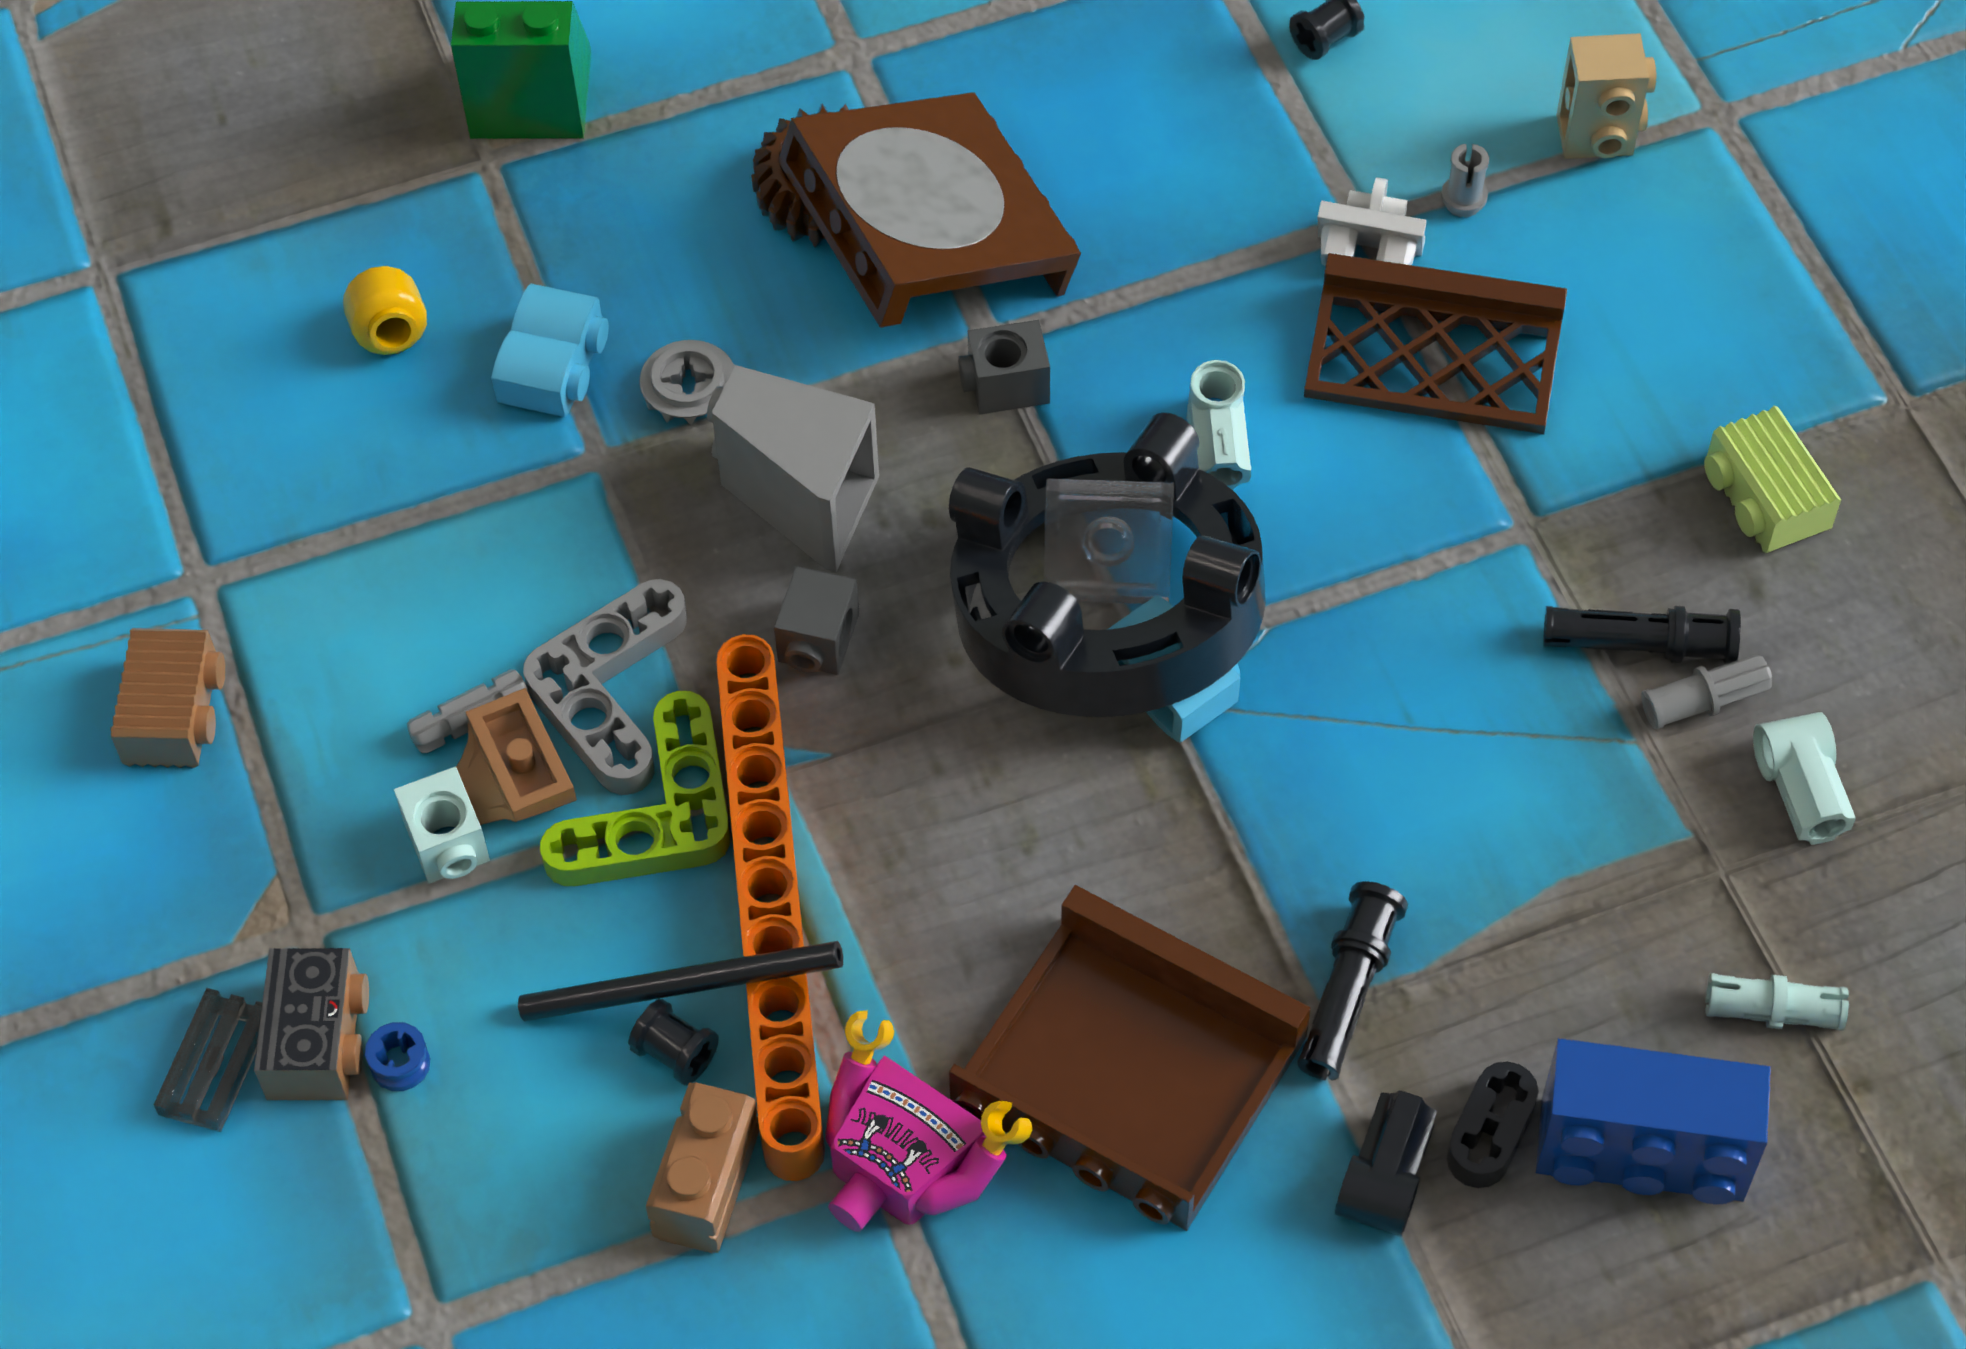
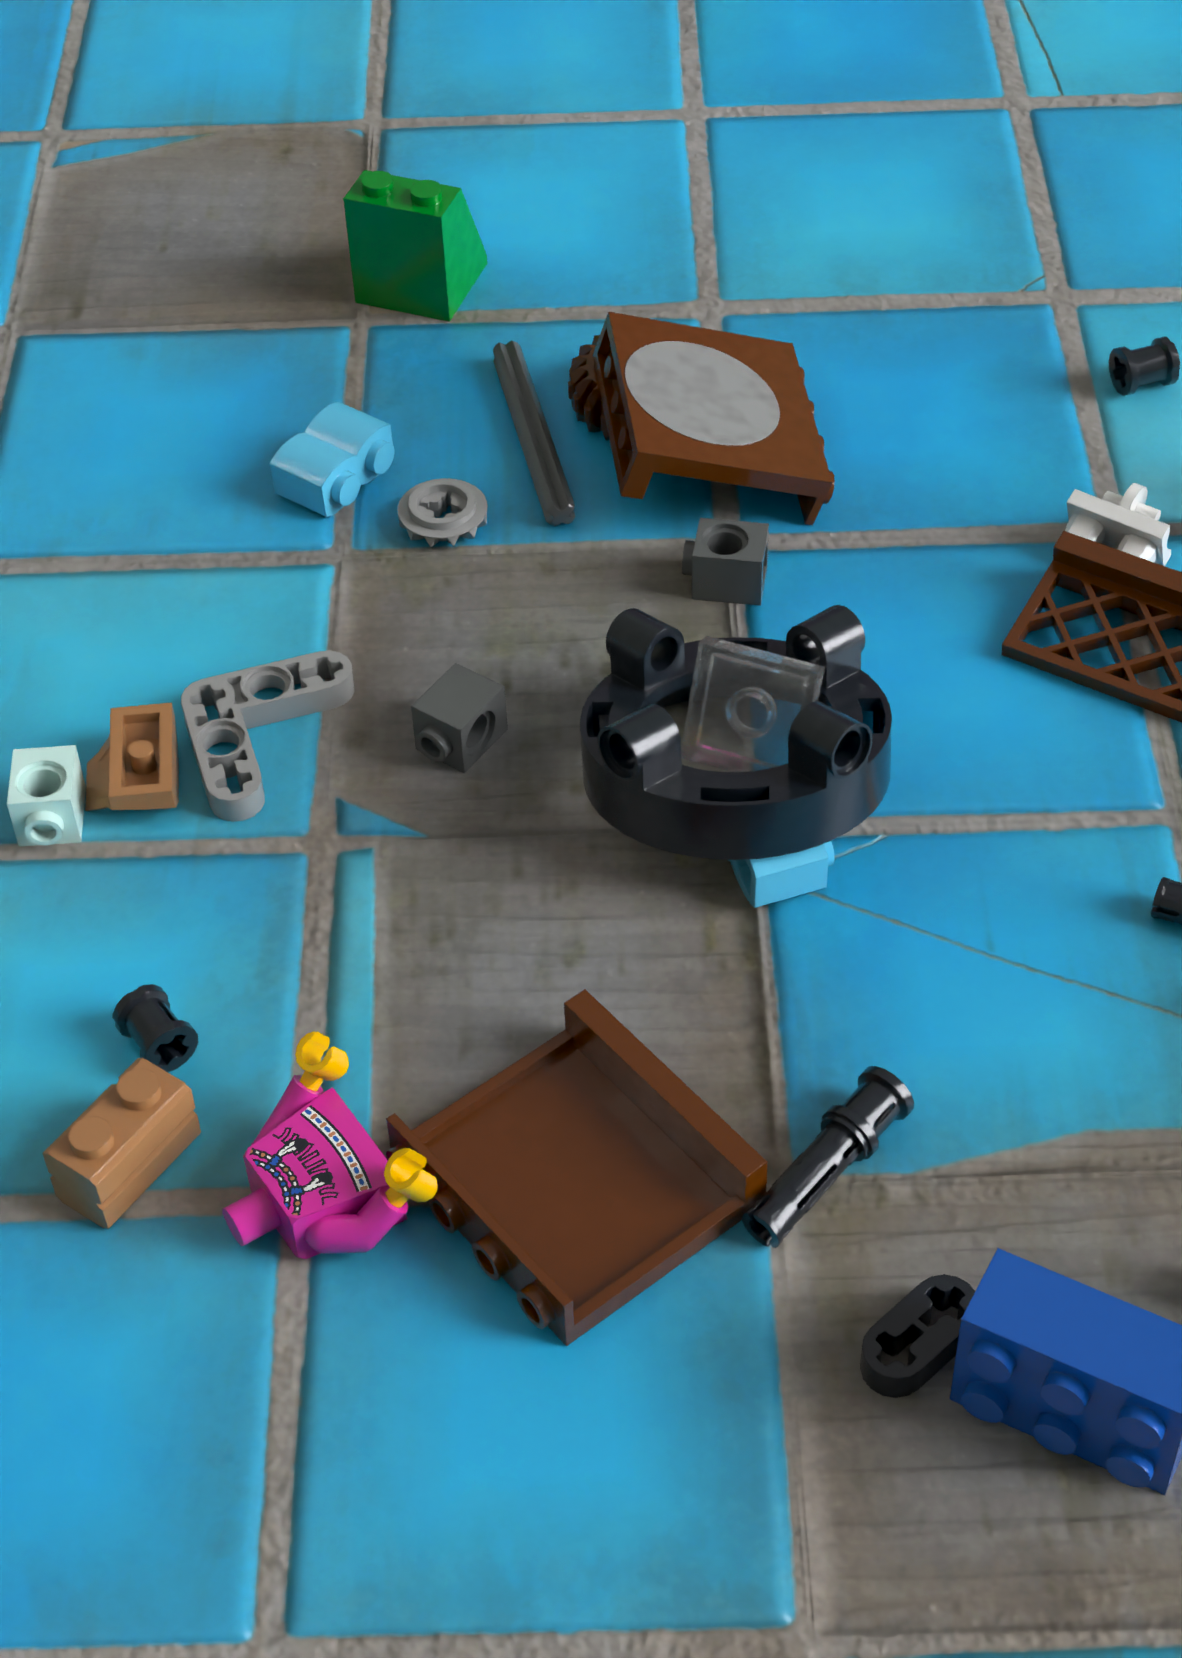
camera: 20 degrees right, 10 degrees down
(384, 310) = (212, 399): yellow head -> none
(429, 730) = (81, 723): light grey axle -> none
(667, 823) = (249, 851): lime beam -> none
(681, 981) = (183, 972): black piece -> none
(739, 260) = (534, 434): none -> dark grey axle
(773, 924) = (295, 947): orange beam -> none
(796, 457) = (502, 580): light grey slope -> none
(1221, 424) = (906, 647): light aqua piece -> none
(1384, 1177) = (781, 1352): black piece -> none

